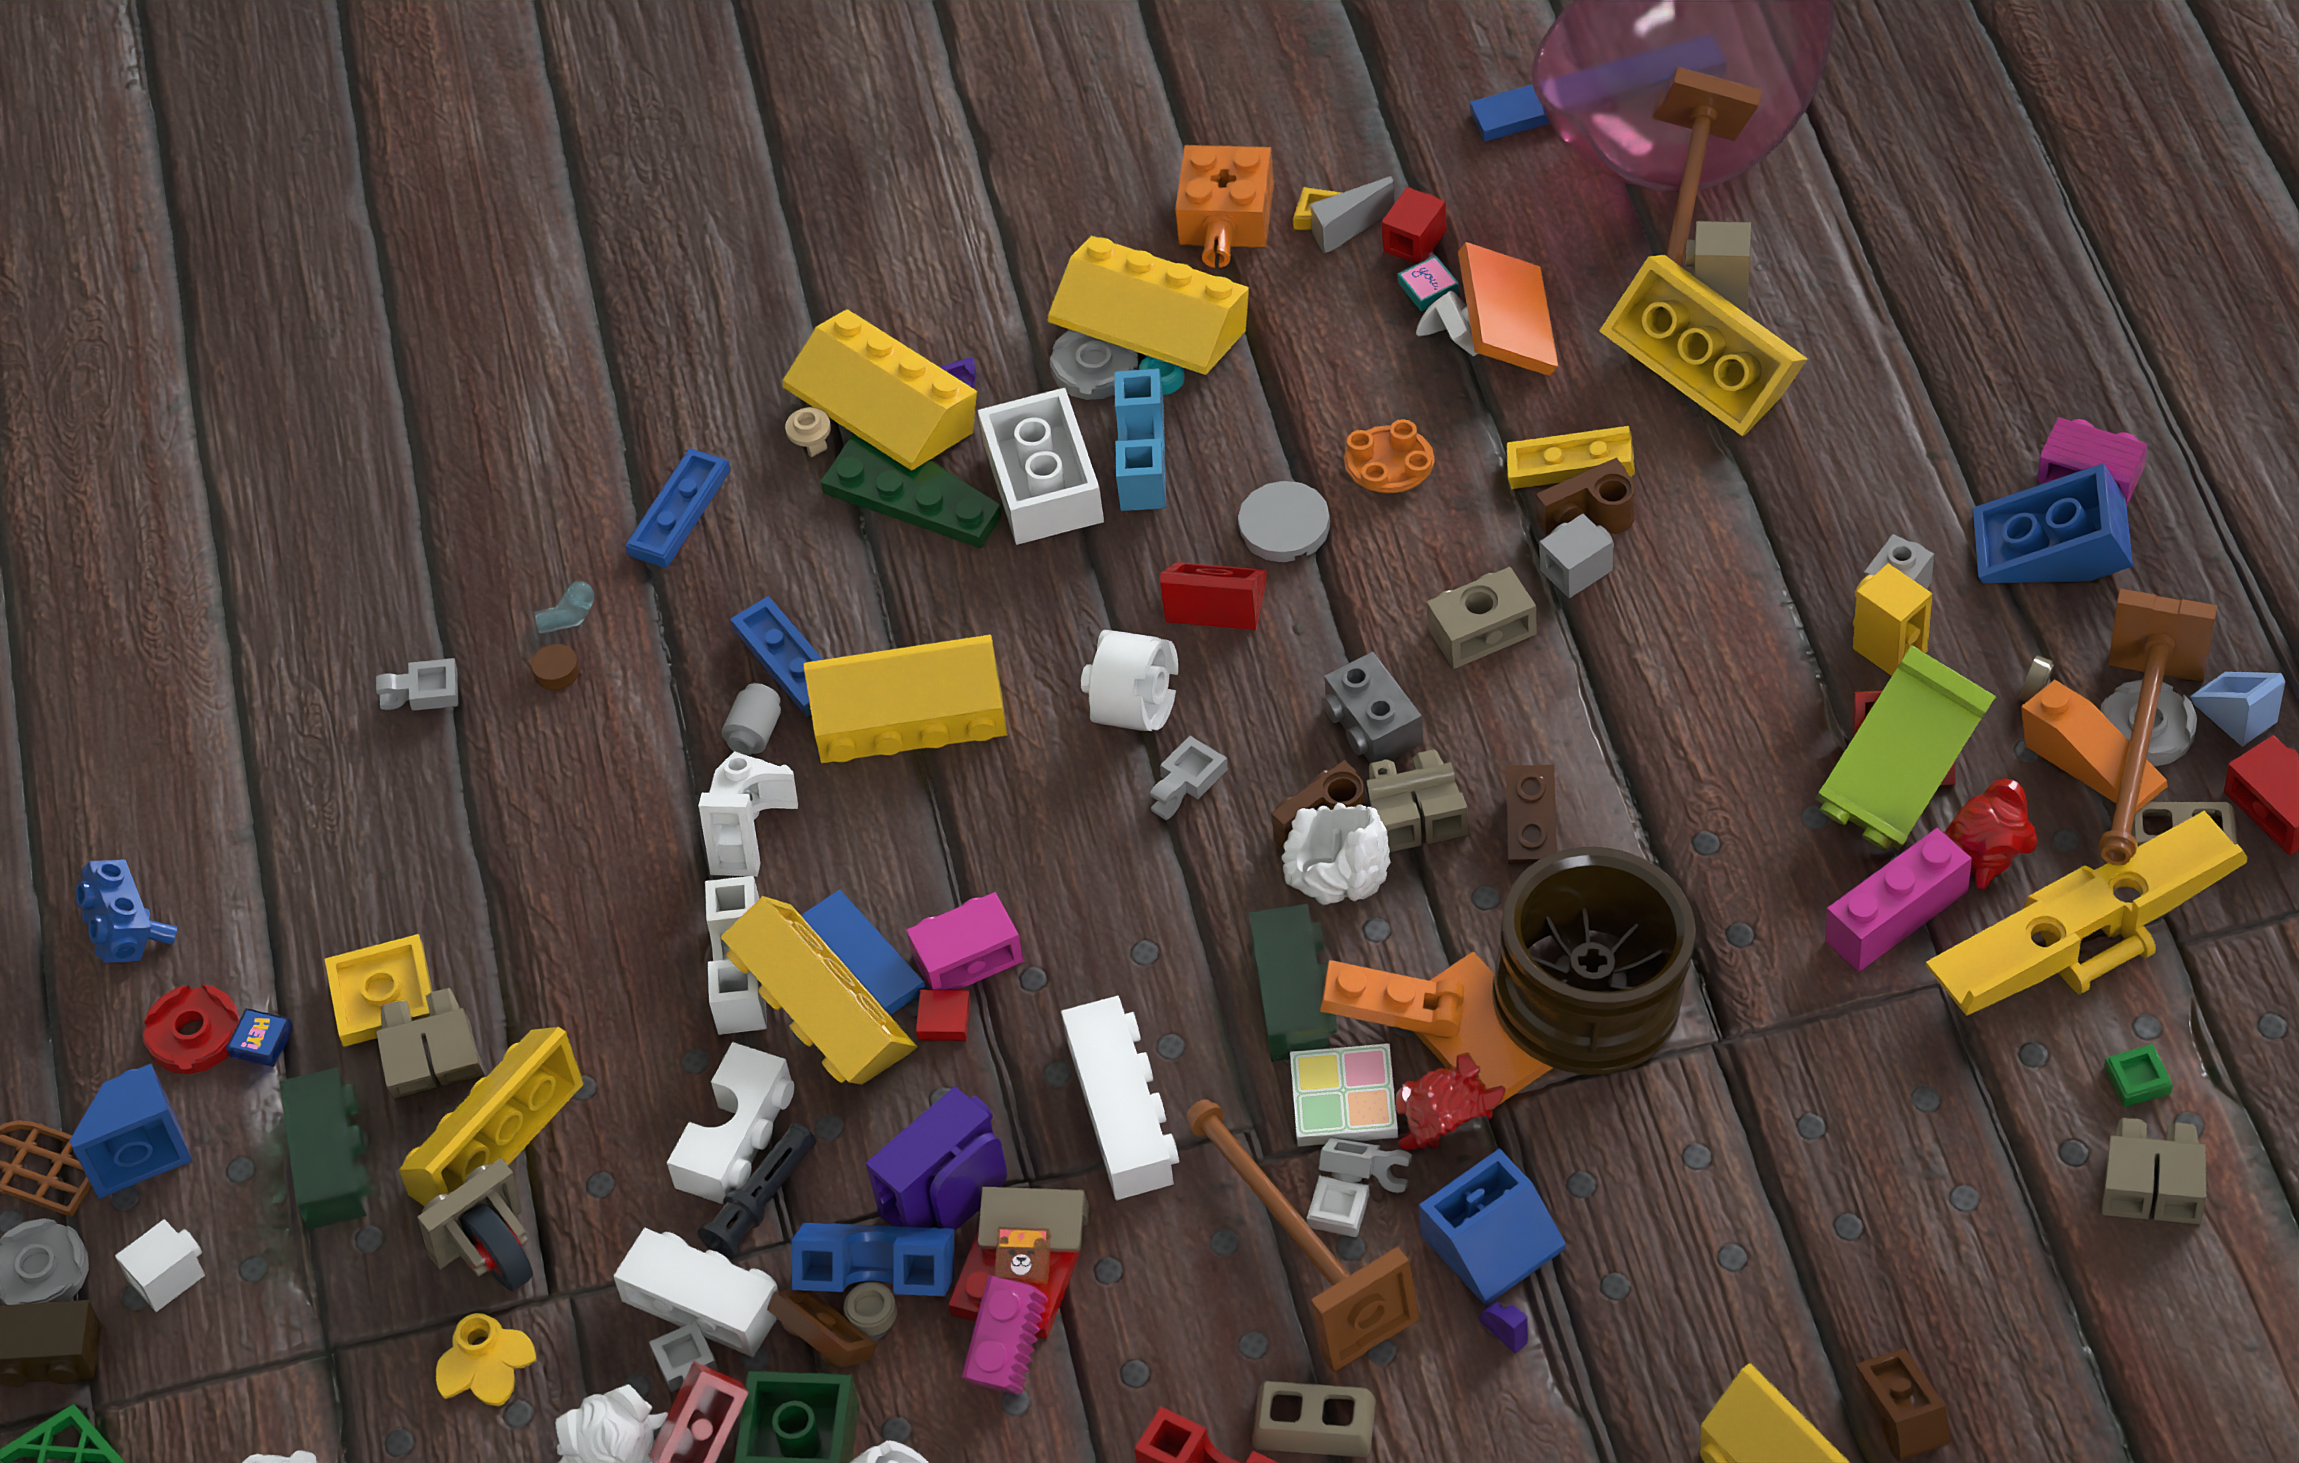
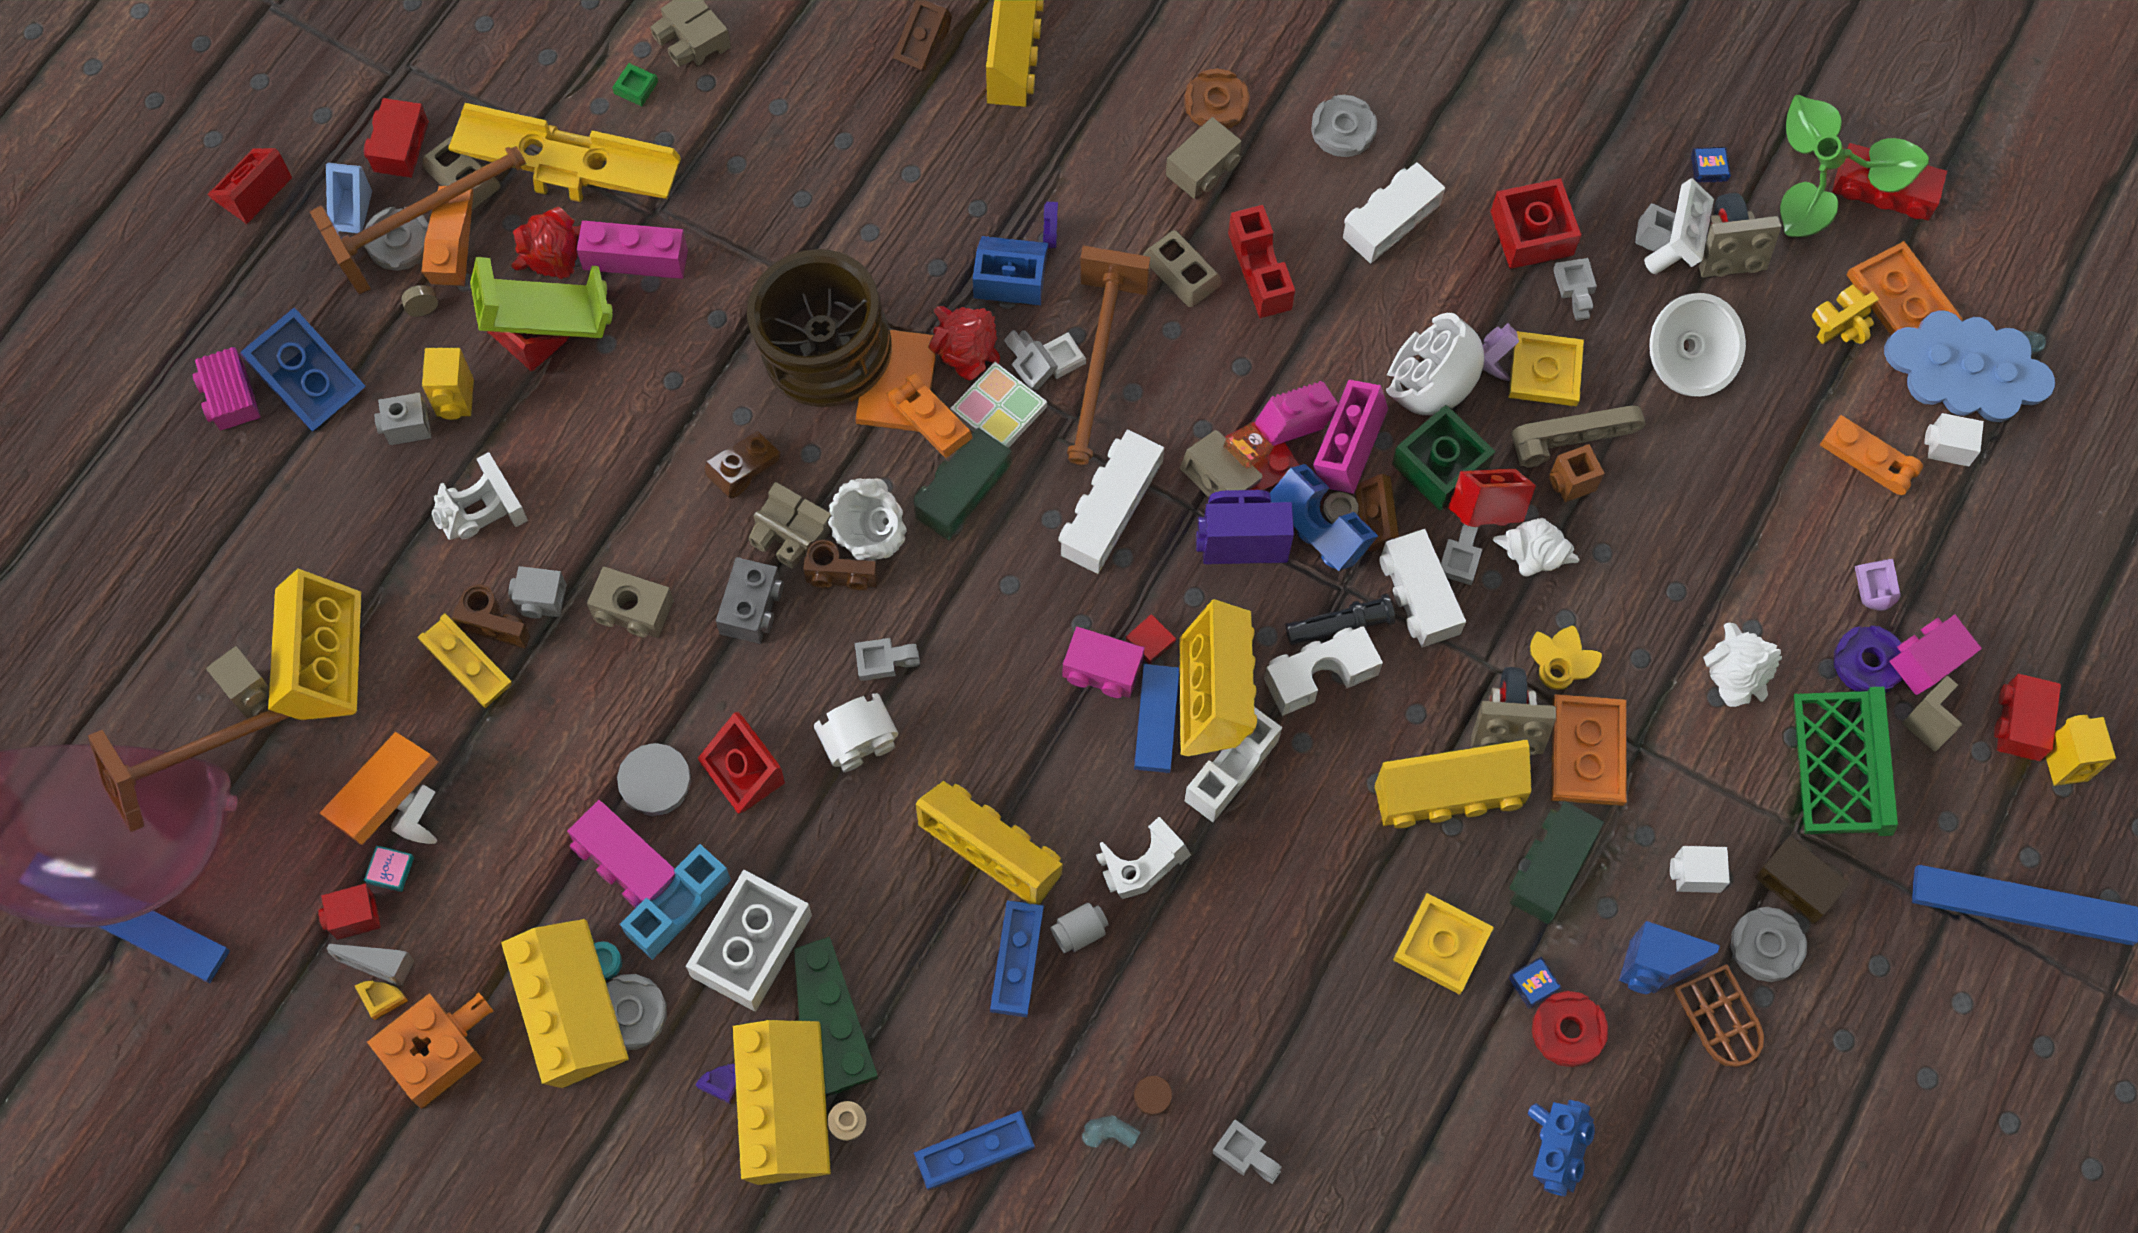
camera: 145 degrees left, 15 degrees up
(379, 1295) = (1589, 750): none -> orange tile
(405, 1050) = (1456, 879): dark tan hips -> none
(923, 1369) = (1351, 436): none -> dark pink brick
(1232, 442) = (620, 854): none -> dark pink brick
(1389, 457) = (554, 761): orange dish -> none
(1738, 547) = (491, 488): none -> white tile

